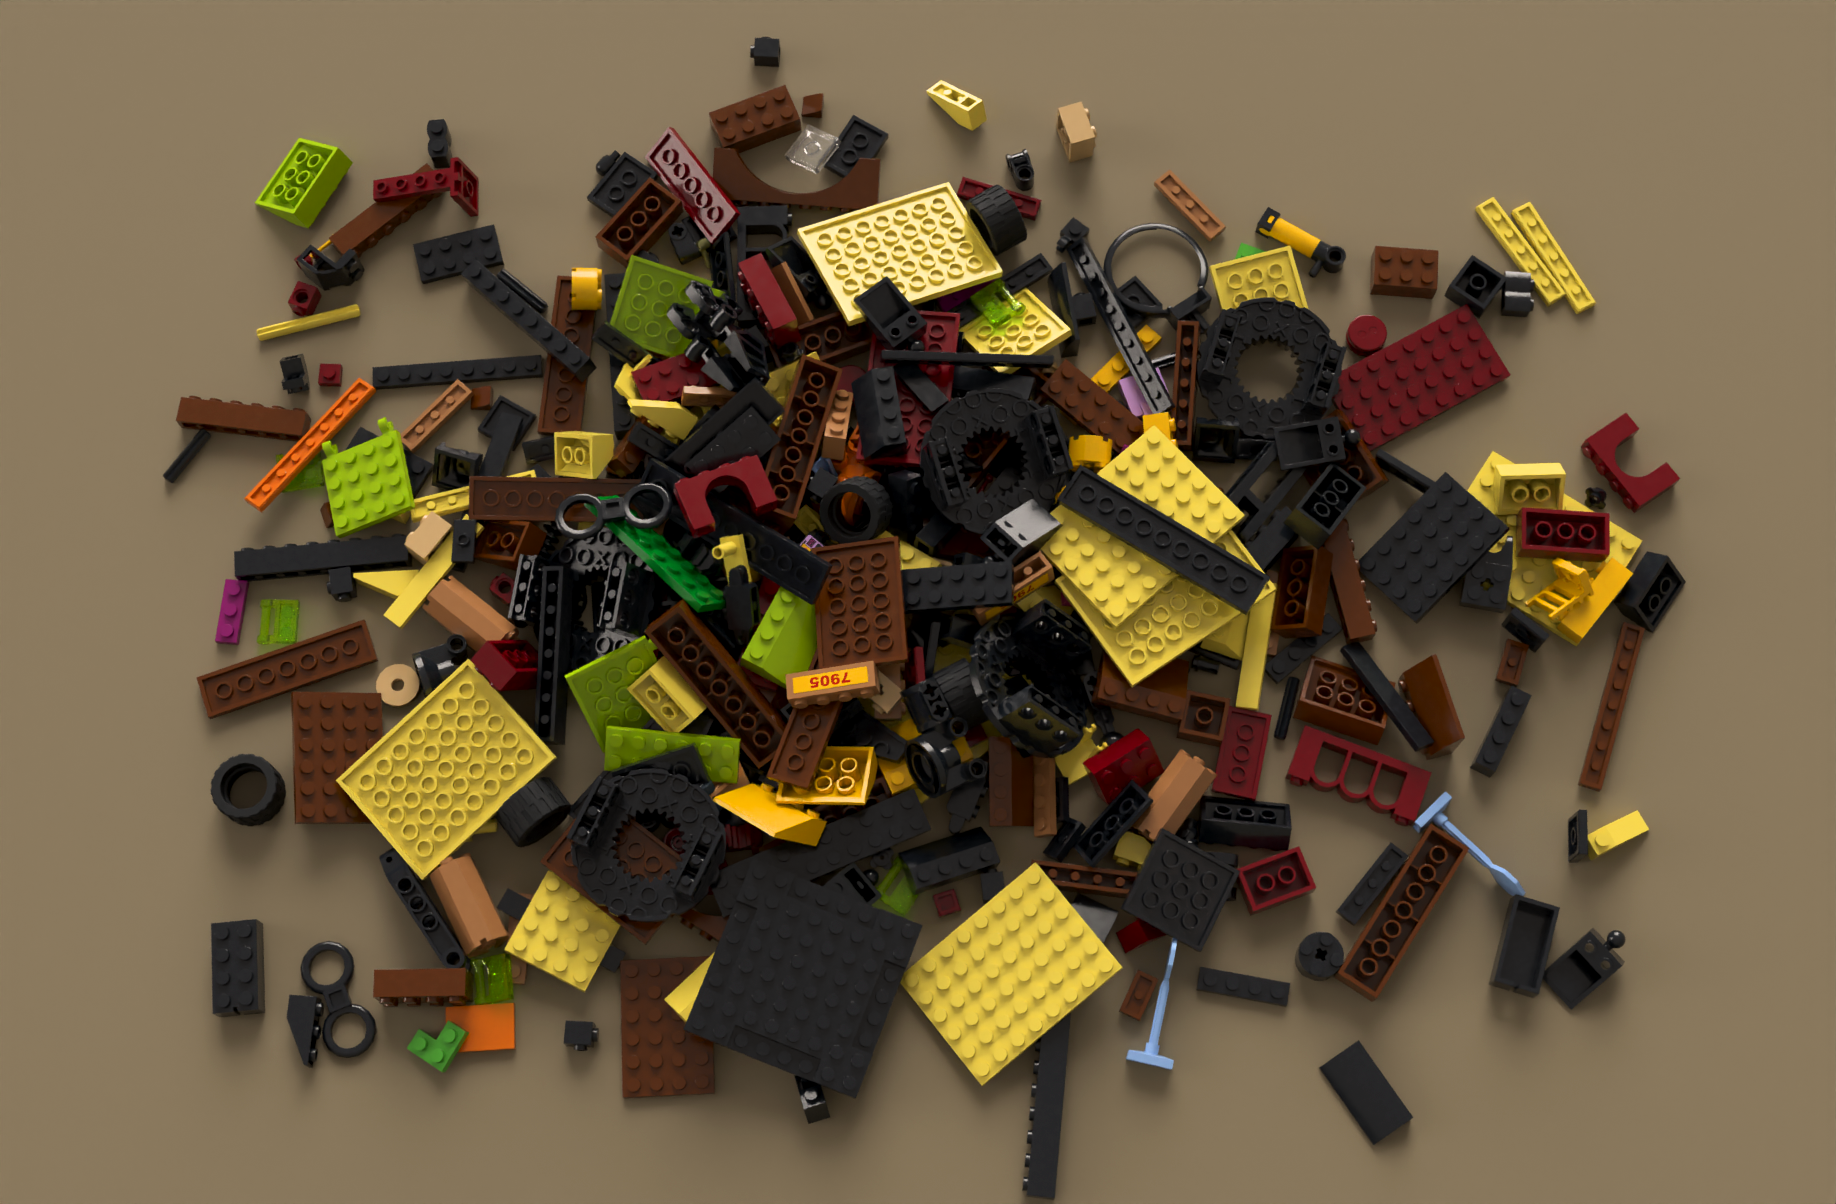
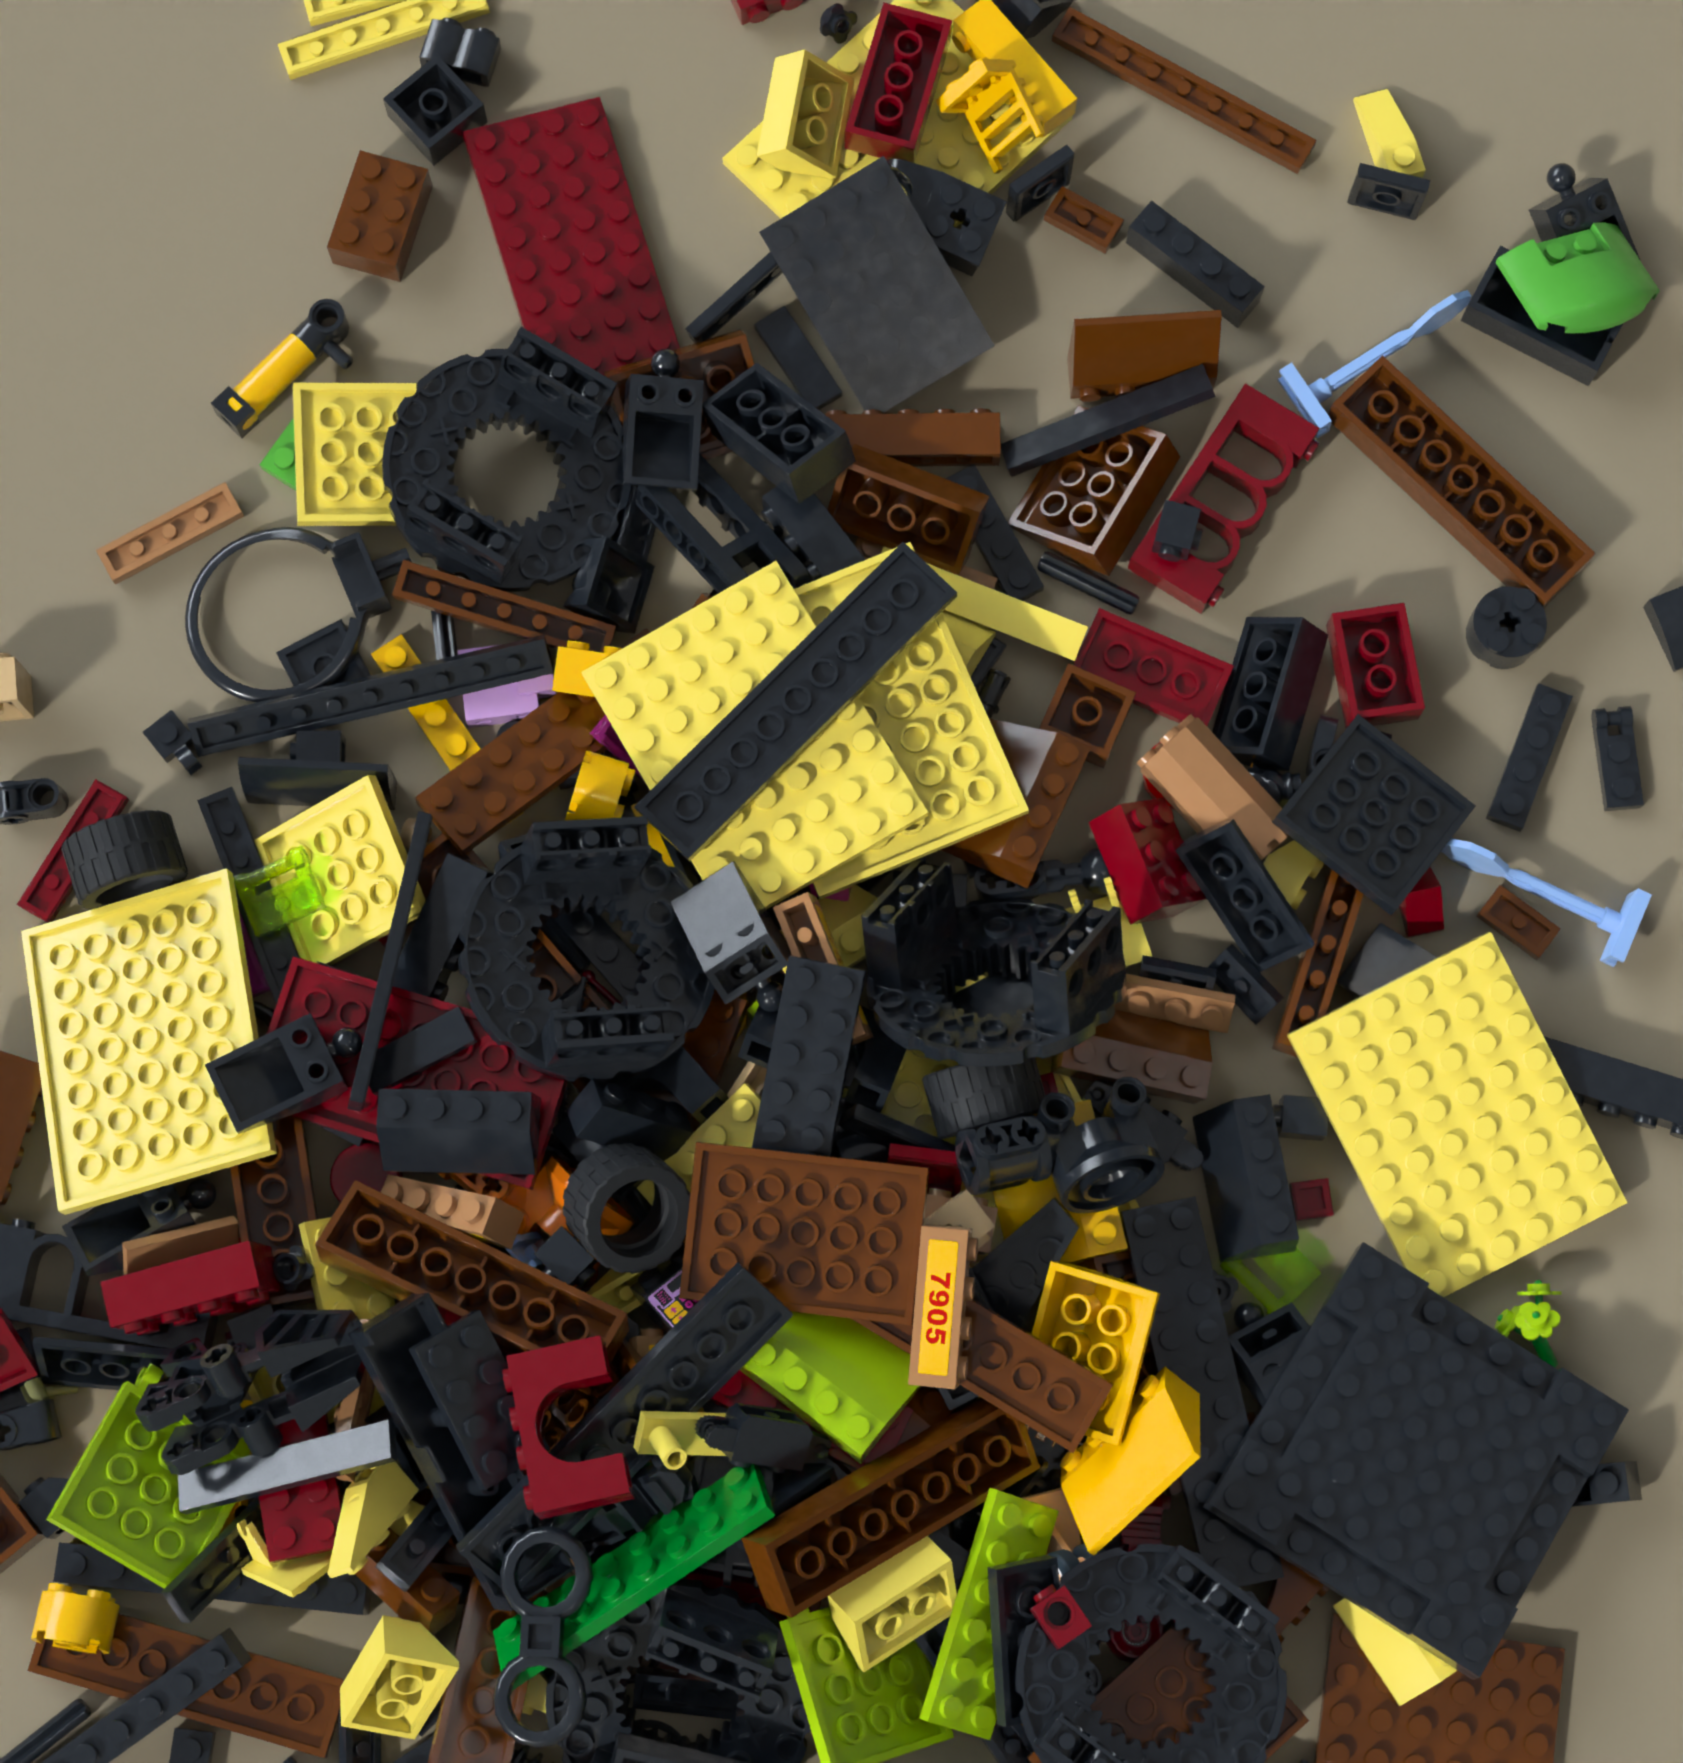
camera: 80 degrees left, 5 degrees up
(669, 792) = (1077, 1620): none -> dark red brick
(681, 367) = (288, 1467): none -> tile
(899, 1040) = (1533, 1320): none -> lime plant
(1254, 1040) = (1617, 759): none -> black plate
(1326, 745) = (1177, 531): none -> black brick
(1366, 335) = (476, 304): dark red head -> none
(1372, 884) = (1401, 520): black plate -> none
(1380, 518) = (797, 358): none -> black tile
(1550, 959) = (1579, 280): none -> bright green slope

